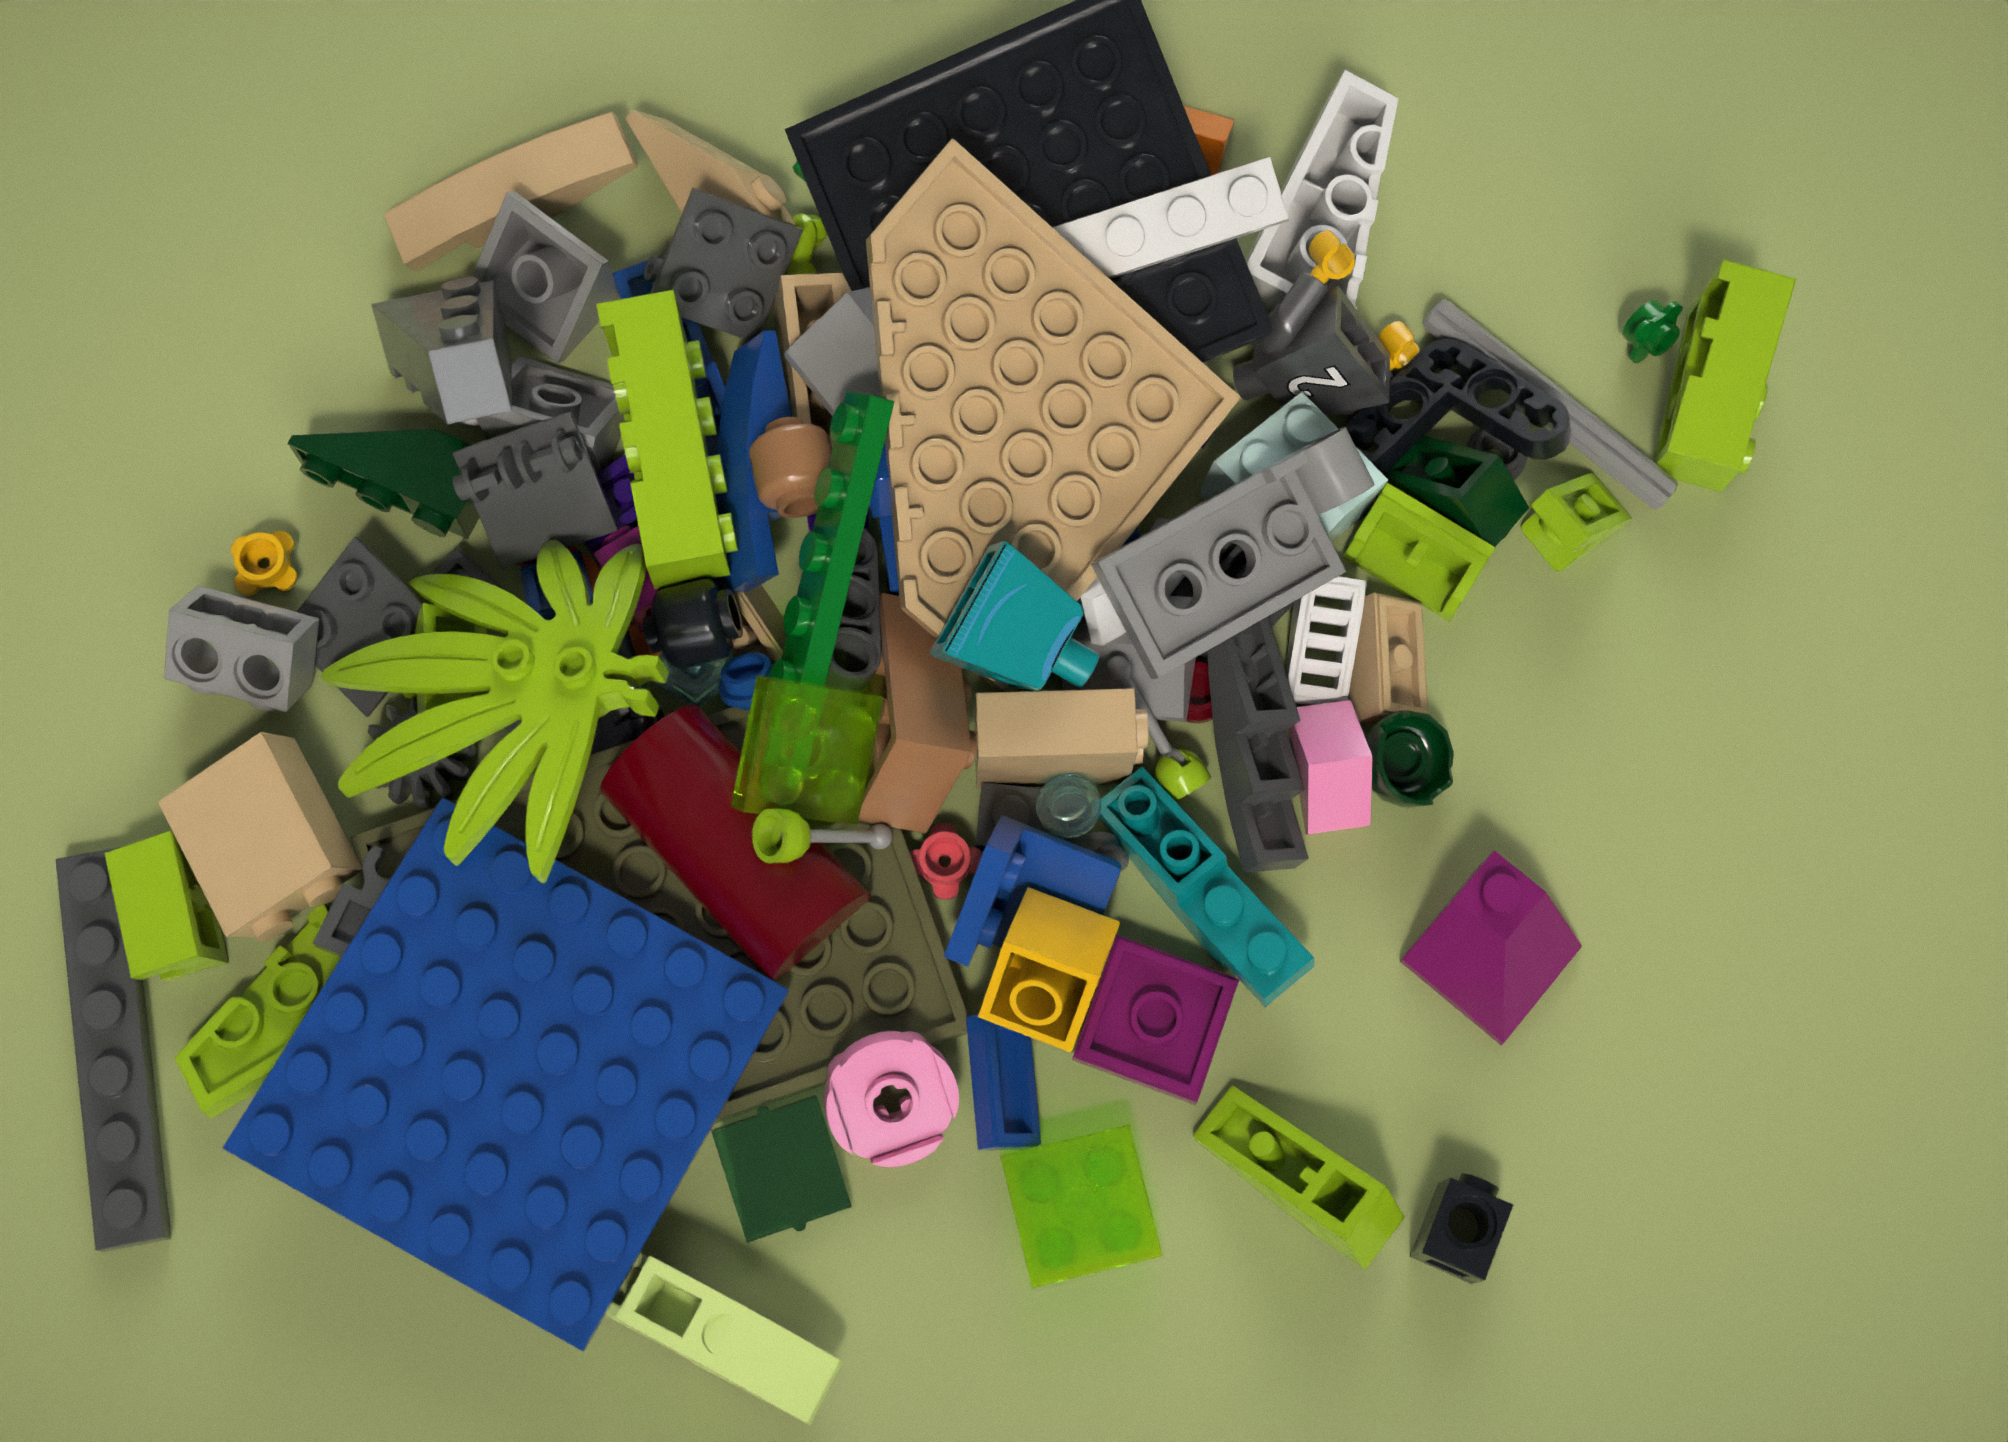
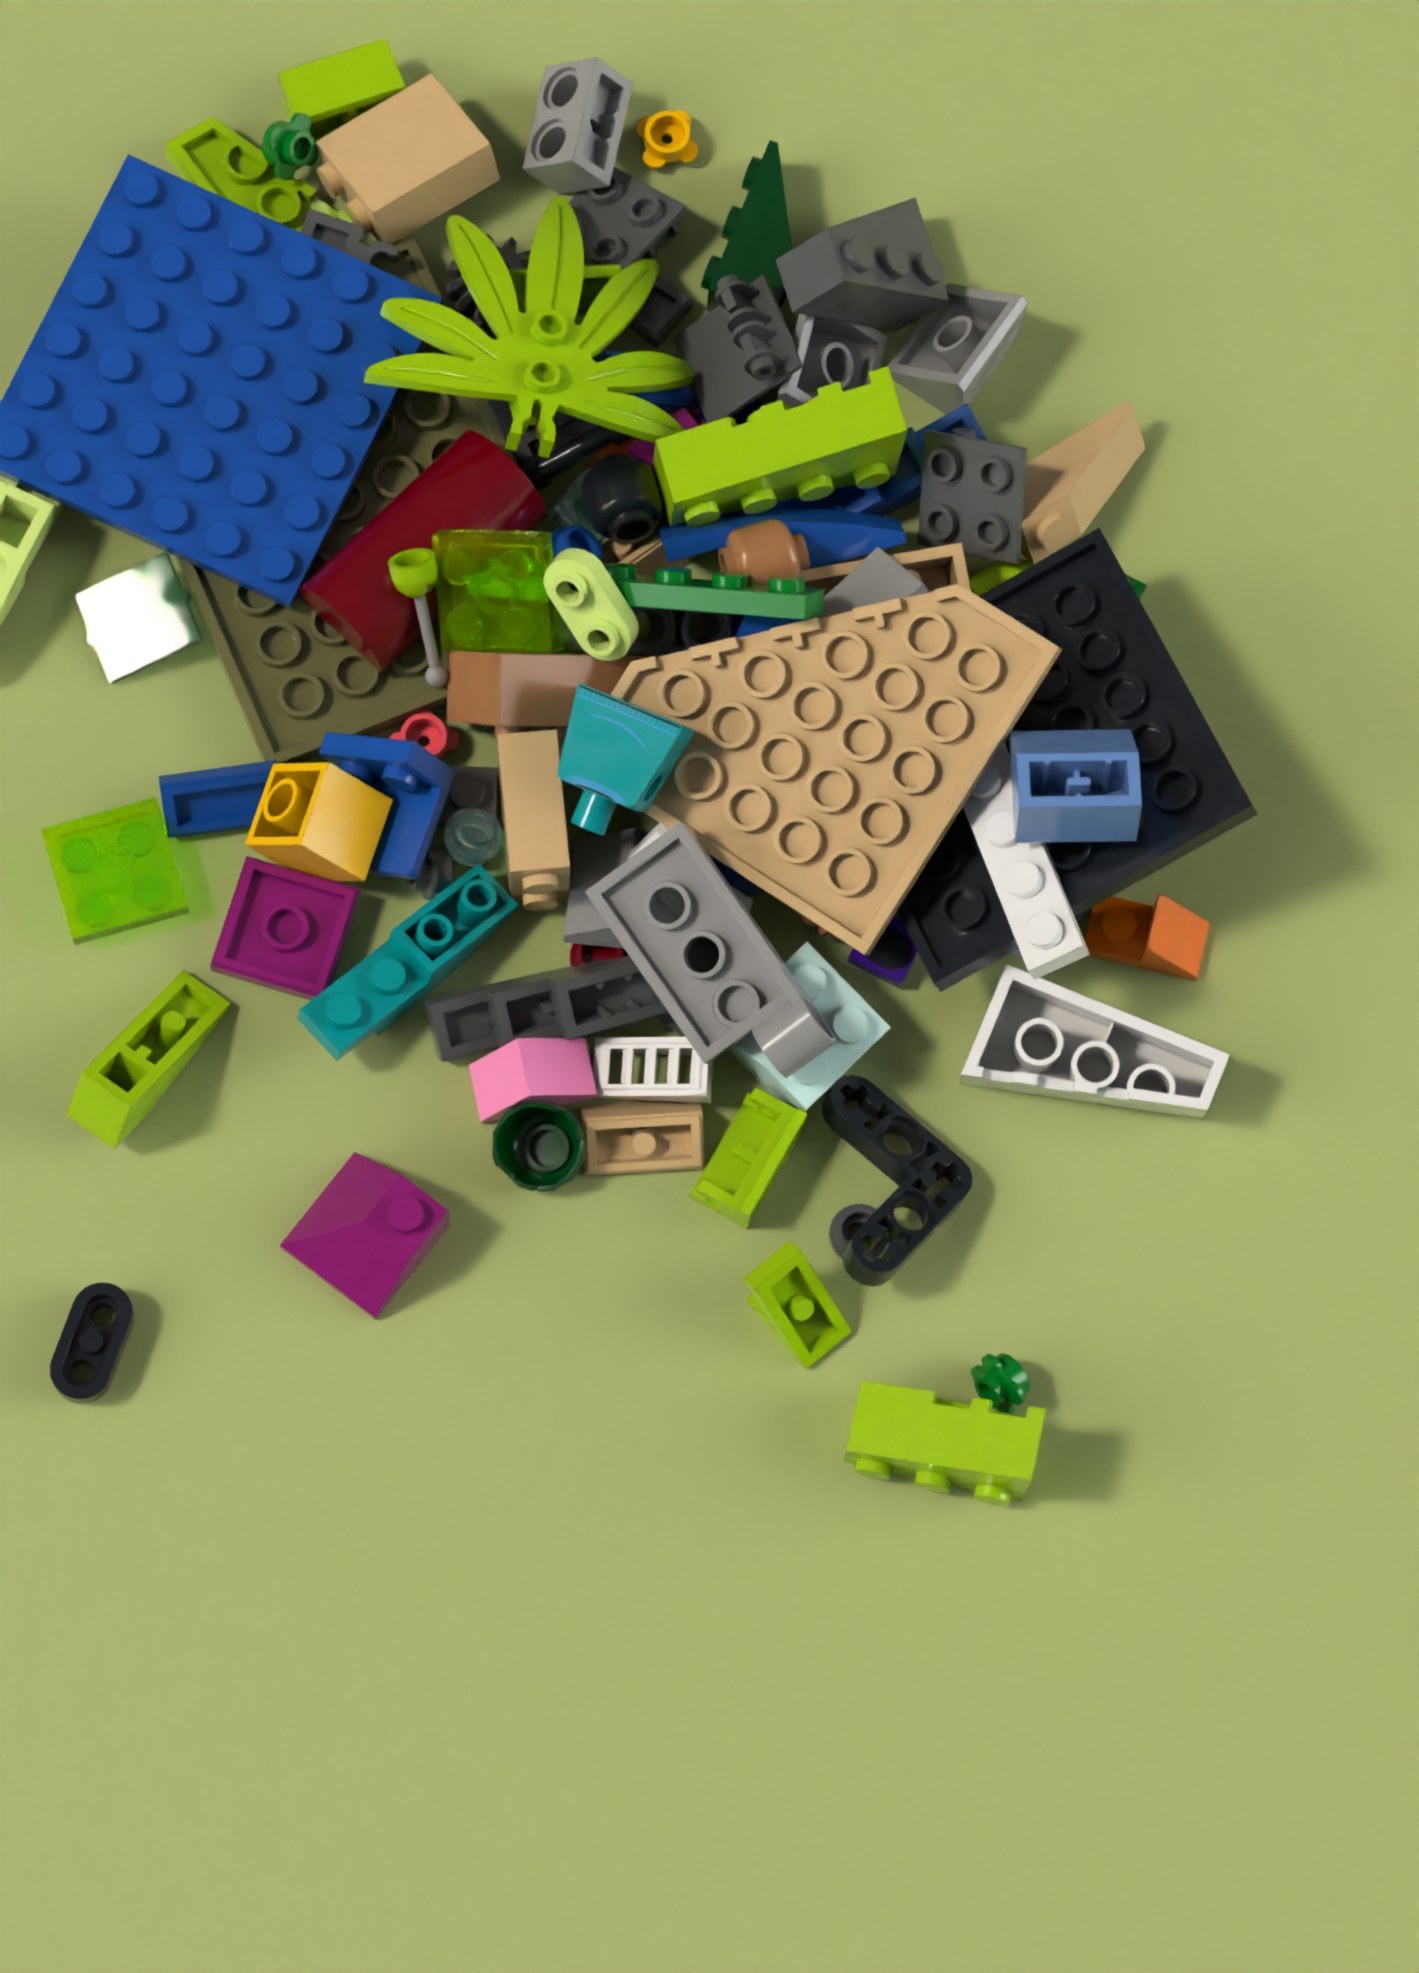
camera: 85 degrees right, 0 degrees up
(111, 1062) = (208, 70): dark grey plate -> none
(226, 966) = (290, 146): none -> green plate
(545, 171) = (1055, 320): tan slope -> none
(850, 634) = (593, 607): none -> yellowish green plate
(881, 1061) = (232, 702): bright pink plate -> none
(1091, 145) = (1075, 785): none -> medium blue slope
(1177, 769) = (519, 939): hinge -> none
(1324, 343) = (932, 1049): flat silver torso -> none
(1437, 1244) = (91, 1179): black brick -> none
(1462, 486) = (811, 1190): dark green slope -> none
(1587, 431) = (917, 1286): light grey axle -> none
(1616, 1248) = (90, 1344): none -> black plate

